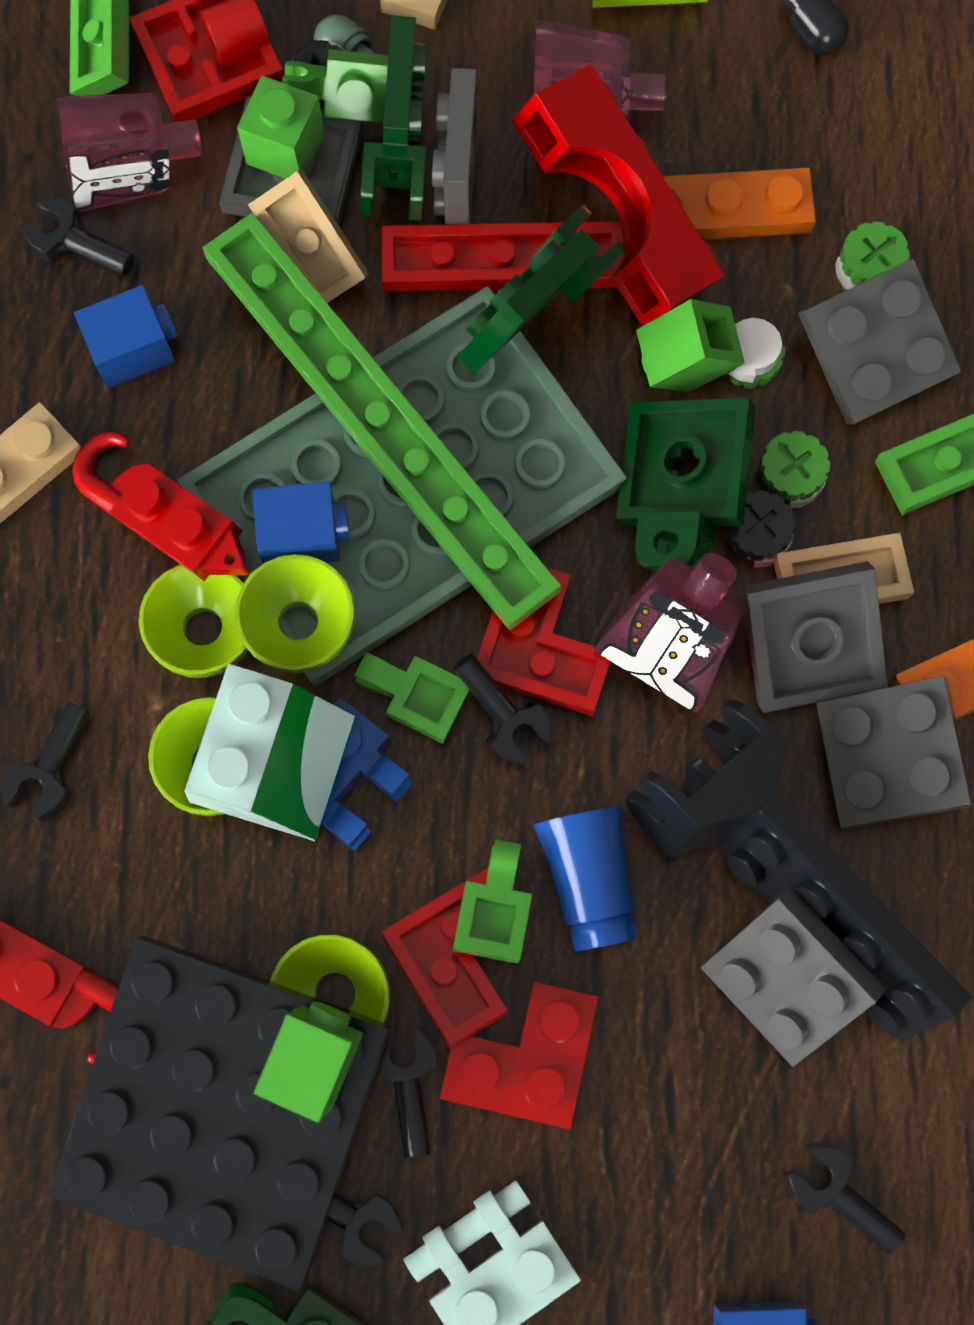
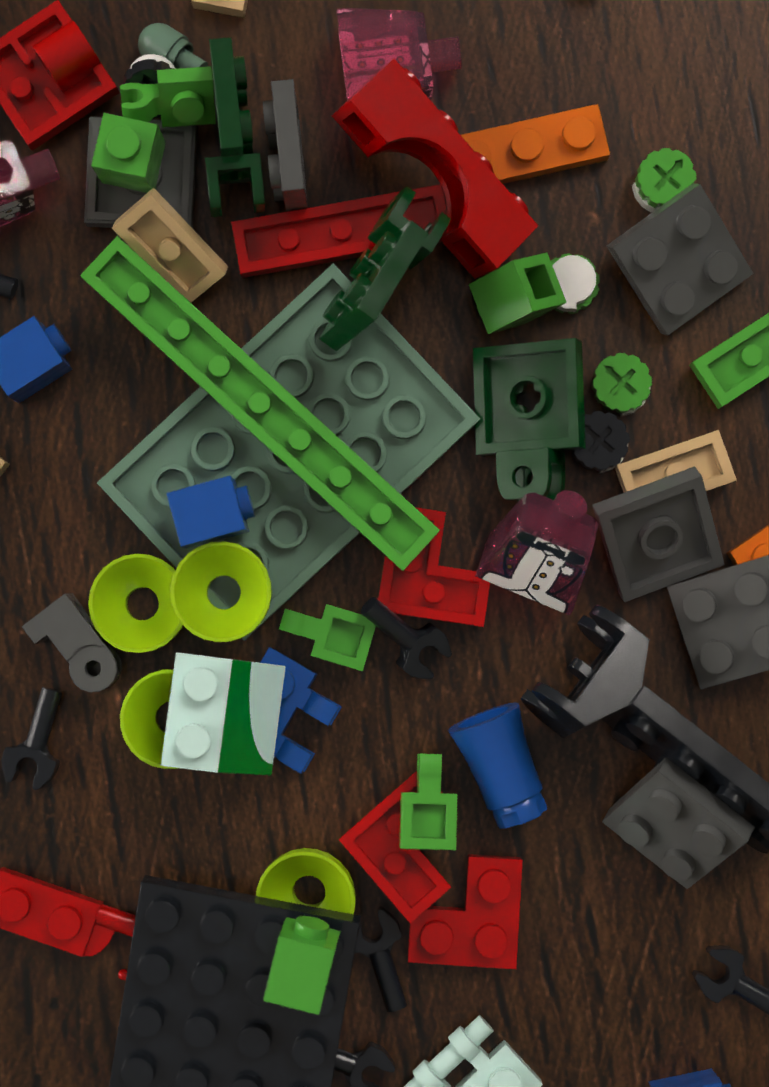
camera: 10 degrees left, 10 degrees up
(130, 674) = (91, 659): none -> dark grey leg
(162, 512) = (90, 515): red plate -> none

